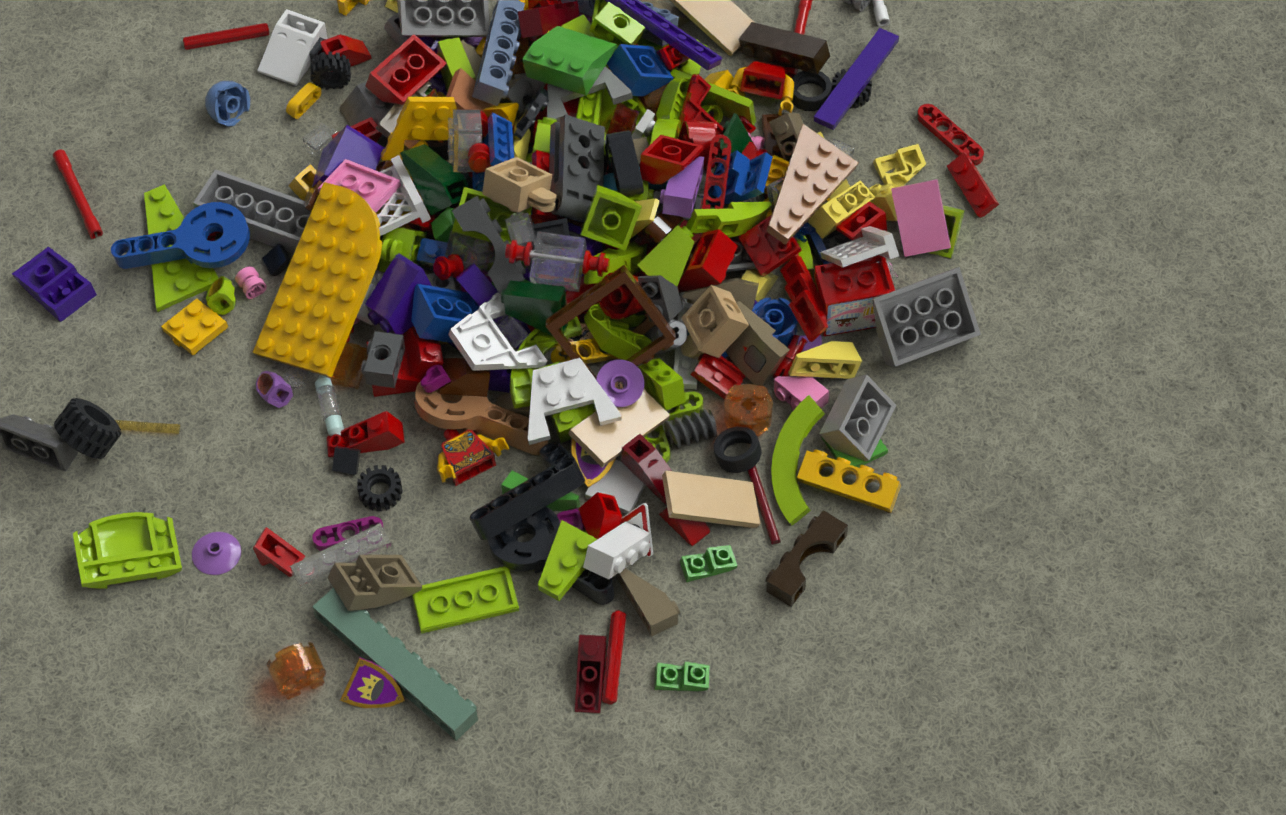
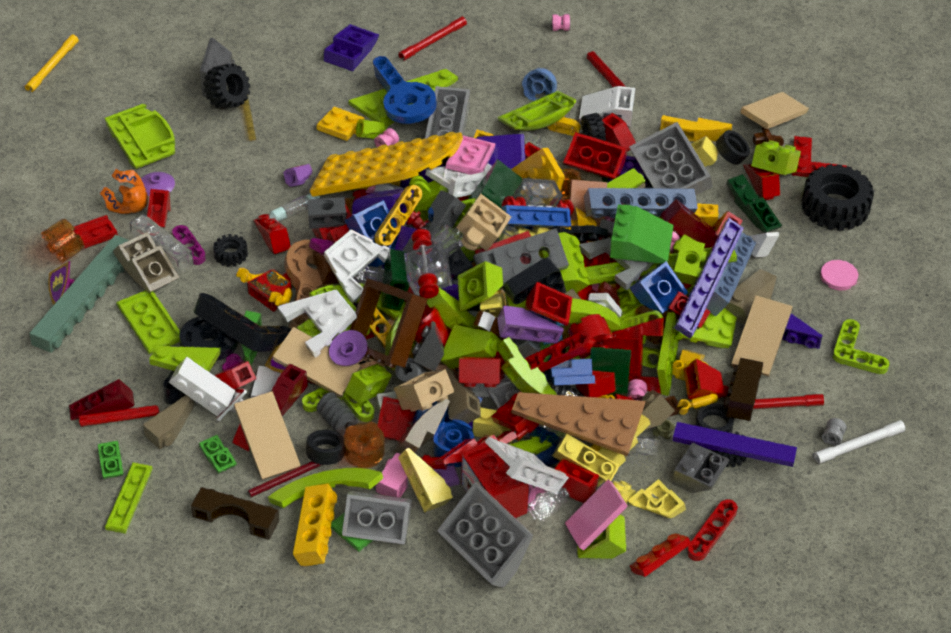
camera: 70 degrees right, 10 degrees down
(115, 55) = (556, 22): none -> bright pink wheel
(239, 575) = (134, 198): none -> orange piece
(281, 113) = (539, 113): none -> lime slope
(282, 630) = (96, 231): none -> red plate
(346, 460) = (249, 227): black tile -> none
(441, 278) = (400, 217): none -> yellow beam
(745, 667) = (128, 498): none -> lime tile
(876, 119) = (698, 469): none -> flat silver slope

